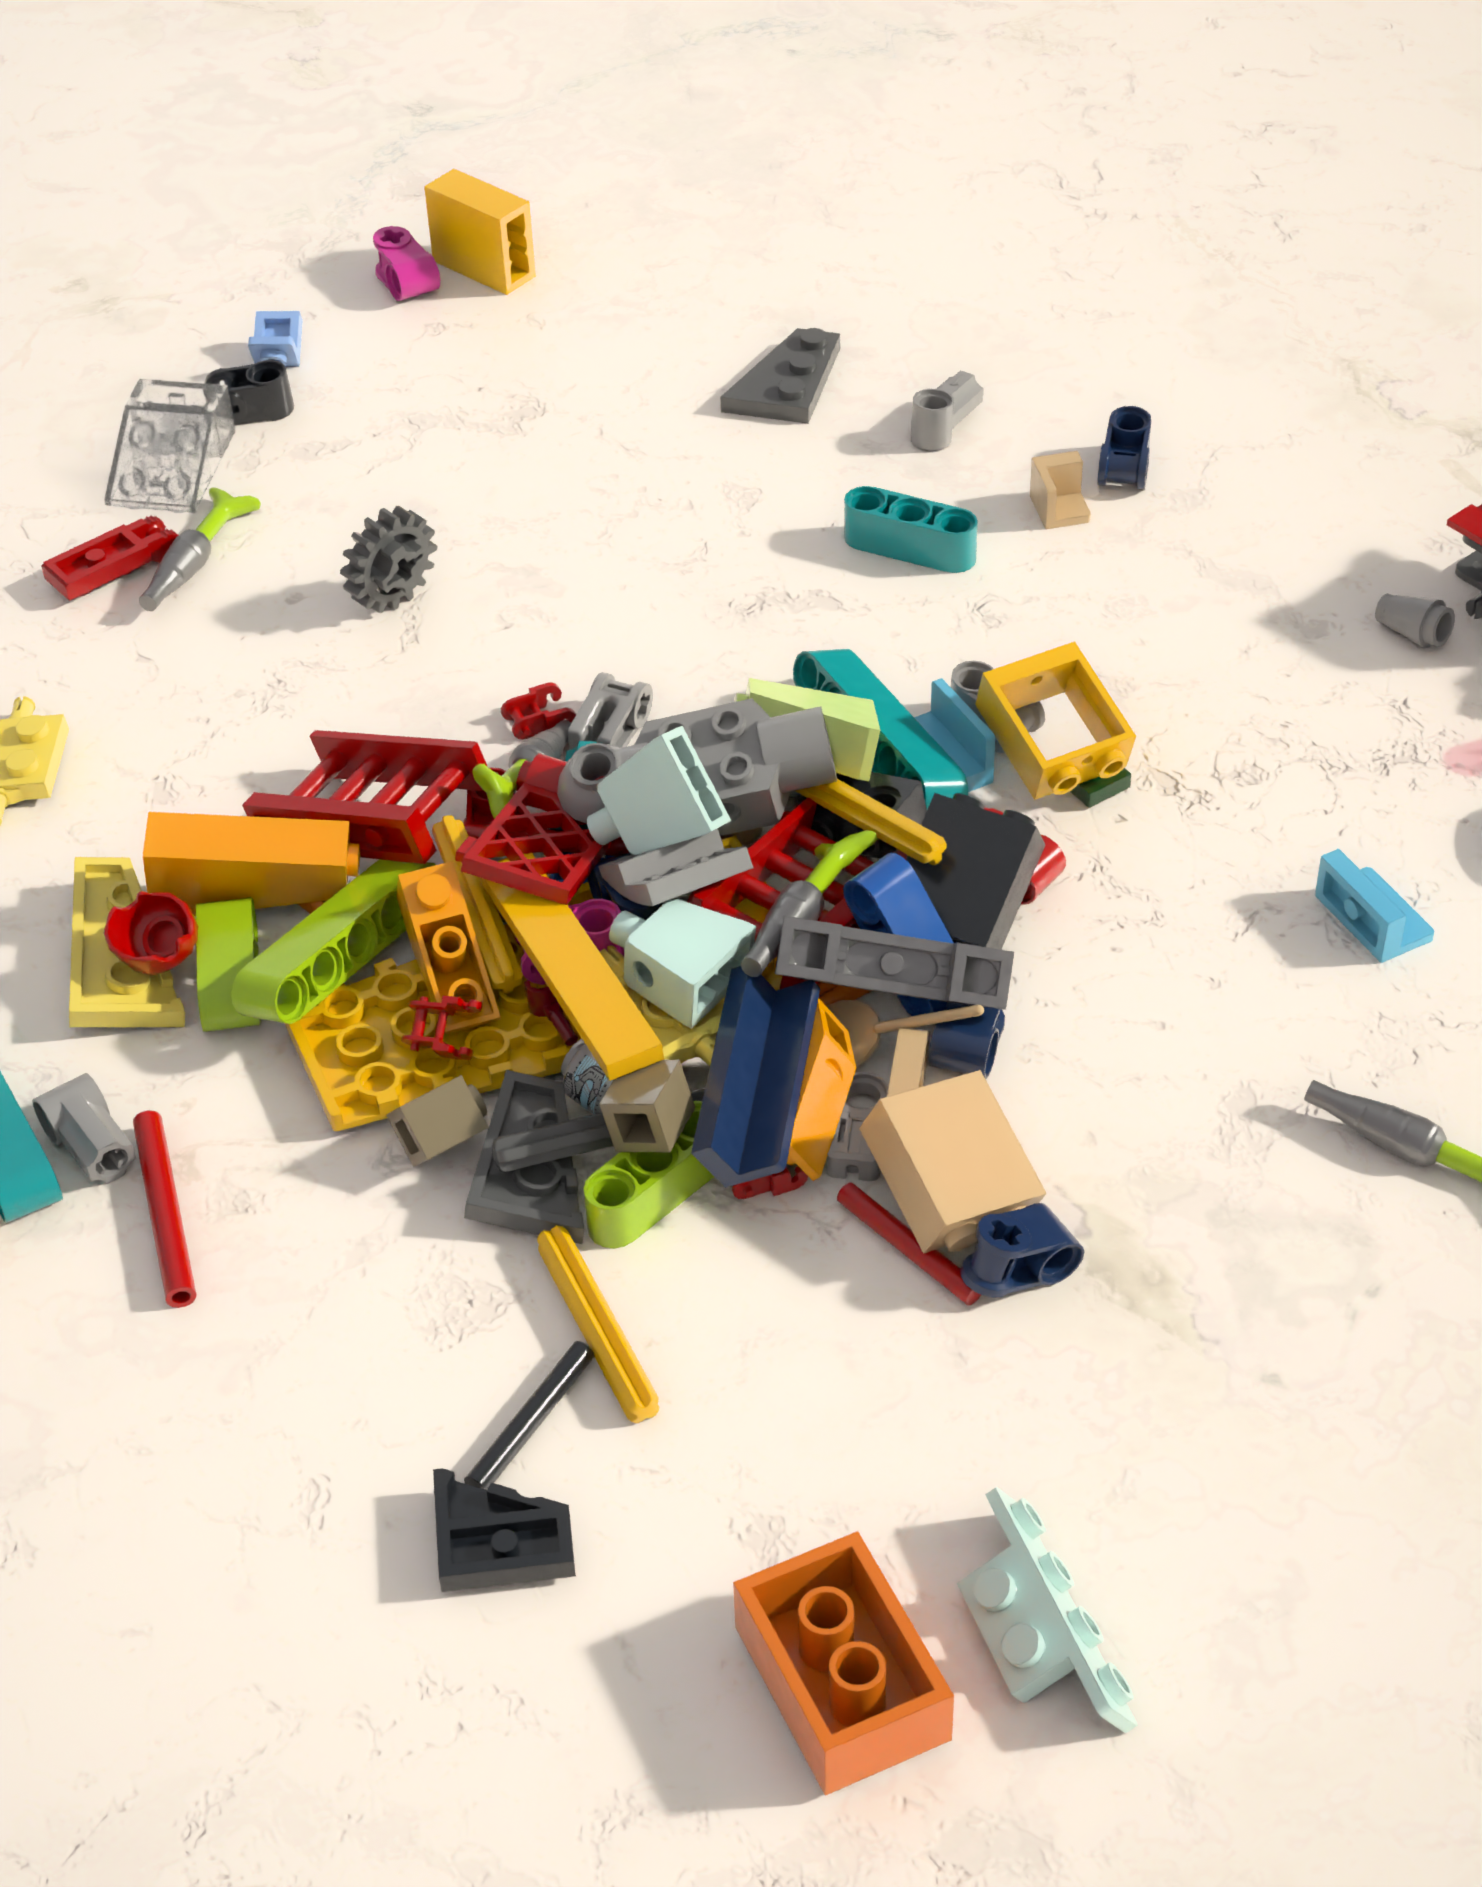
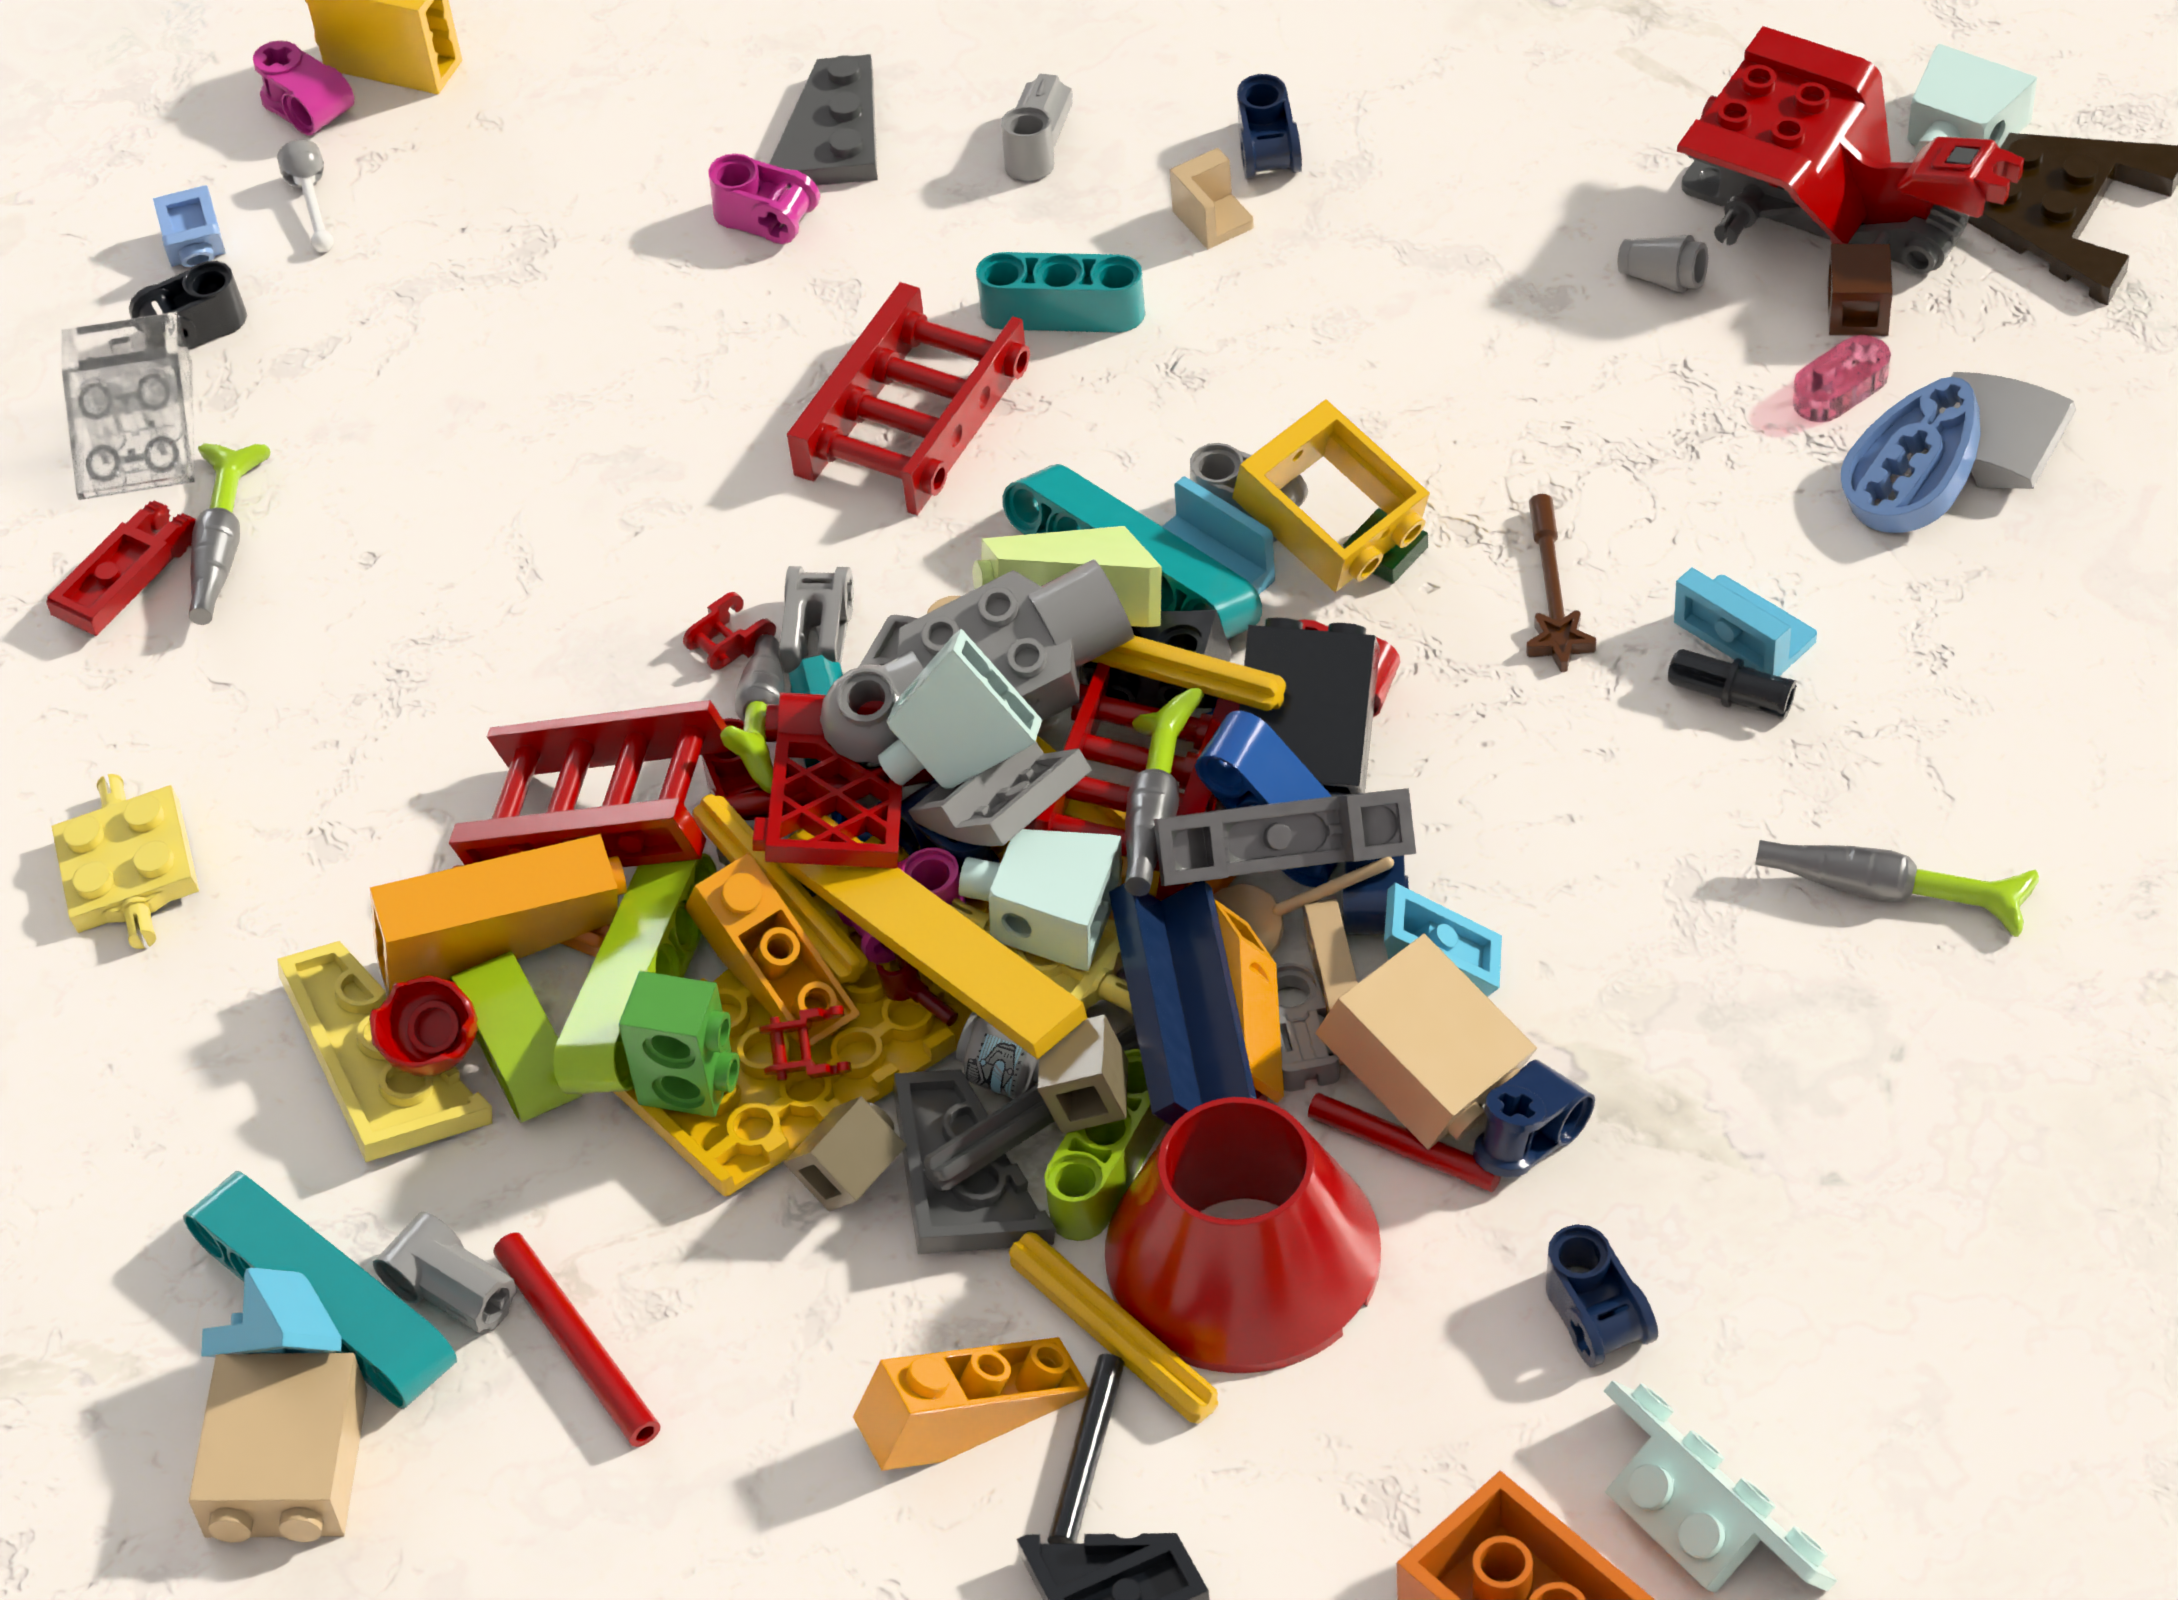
camera: 15 degrees left, 5 degrees up
(332, 993) = (678, 1044): none -> bright green brick
(379, 318) = (302, 168): none -> hinge
(388, 559) = (477, 489): dark grey gear -> none
(440, 1342) = (957, 1399): none -> light orange slope
(708, 411) = (756, 197): none -> dark pink piece
(742, 1317) = (1252, 1287): none -> red cone
(745, 543) = (877, 361): none -> red fence
(1016, 1421) = (1597, 1306): none -> dark blue piece
(1021, 1095) = (1463, 941): none -> medium azure slope
(1213, 879) = (1558, 634): none -> reddish brown piece
(1344, 952) = (1732, 682): none -> black axle

